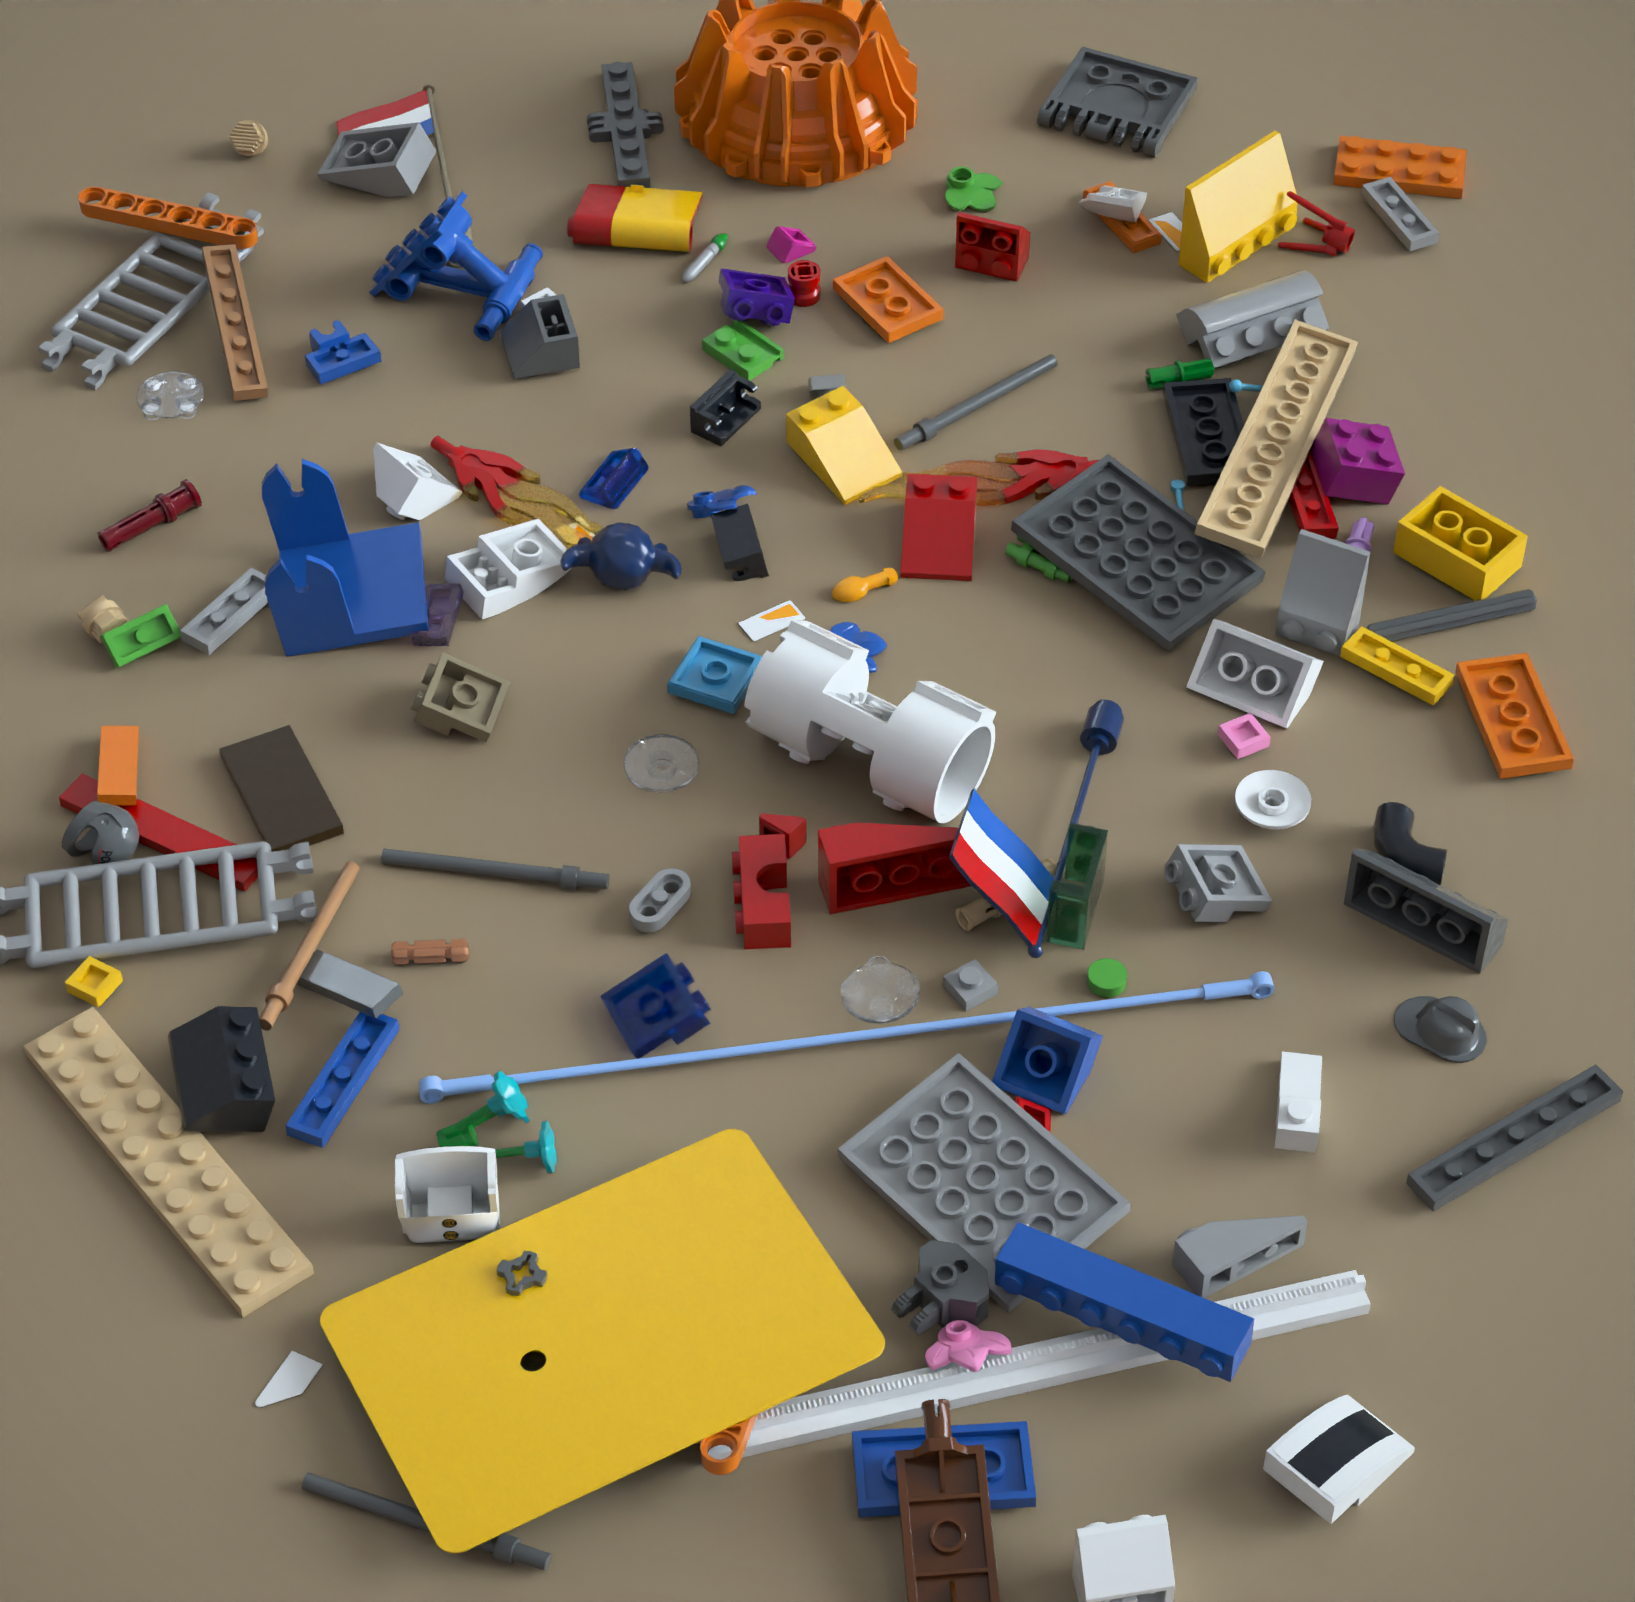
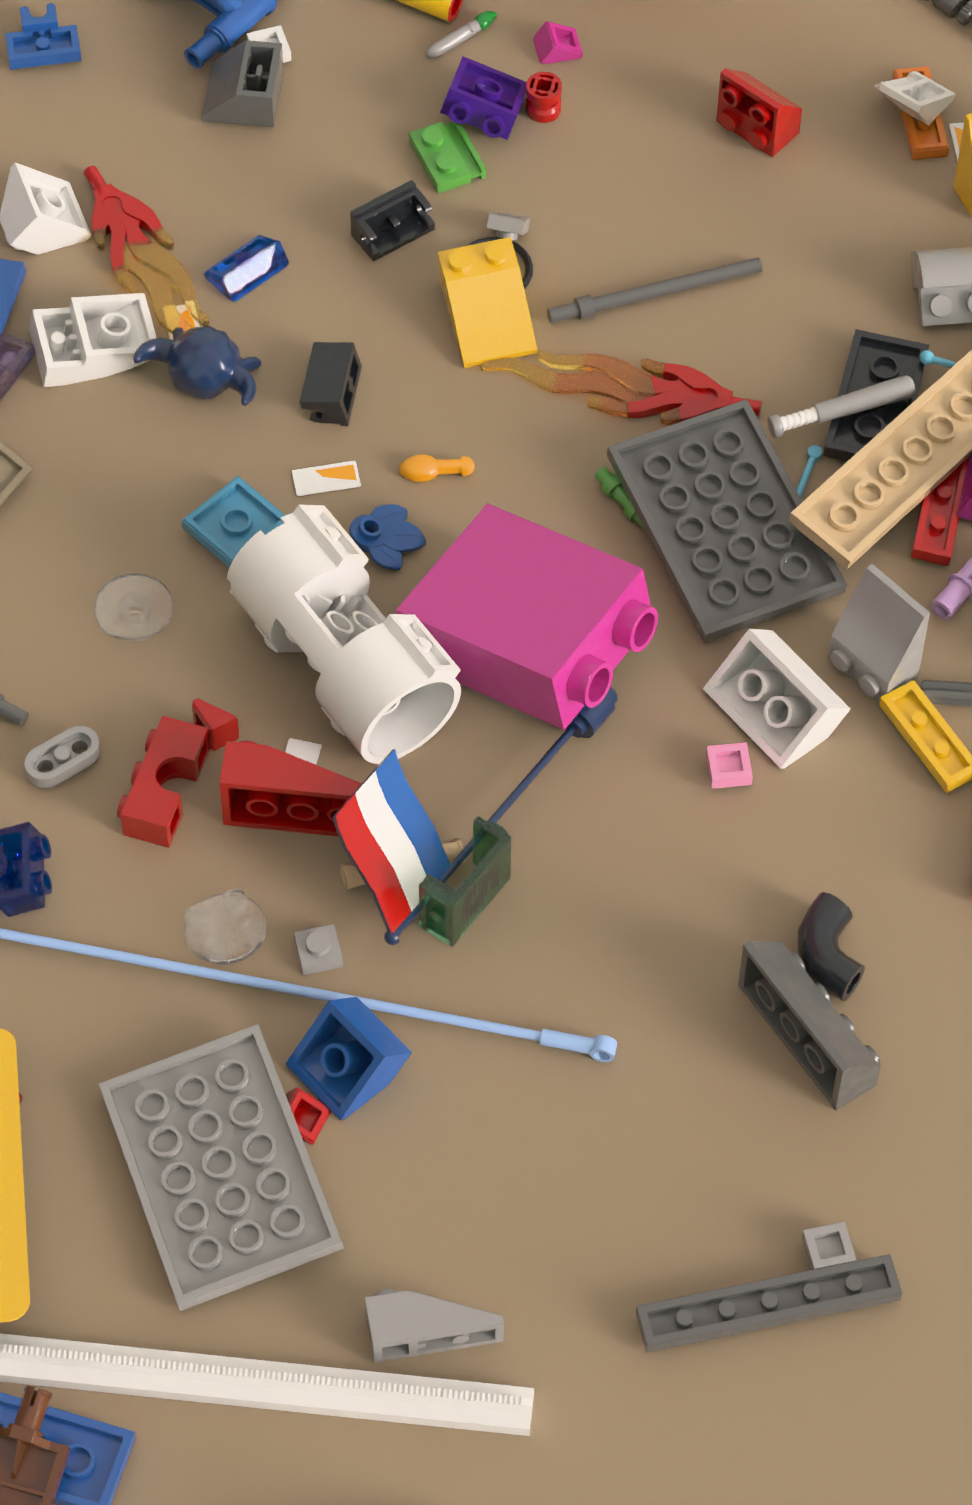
camera: 20 degrees right, 10 degrees up
(708, 503) = (331, 329): blue plate -> none
(888, 299) = (622, 141): orange plate -> none
(939, 527) = (539, 427): red slope -> none
(945, 1288) = (128, 1266): dark grey hinge -> none
(965, 1346) = (113, 1333): bright pink plate -> none
(971, 189) = (775, 34): bright green plate -> none
(1031, 656) = (533, 614): none -> dark pink brick
(1107, 977) = (455, 987): bright green tile -> none
(1124, 1302) = (276, 1347): blue brick -> none
(1179, 372) = (881, 321): green axle -> none
(1195, 434) = (854, 402): none -> light grey piece
(1215, 881) = (613, 920): light grey plate -> none
(1273, 799) = (723, 834): white dish -> none
(1298, 1102) = (571, 1189): white slope -> none
(1442, 1026) = (762, 1157): dark grey piece -> none
(1538, 1076) = (828, 1245): none -> light grey plate

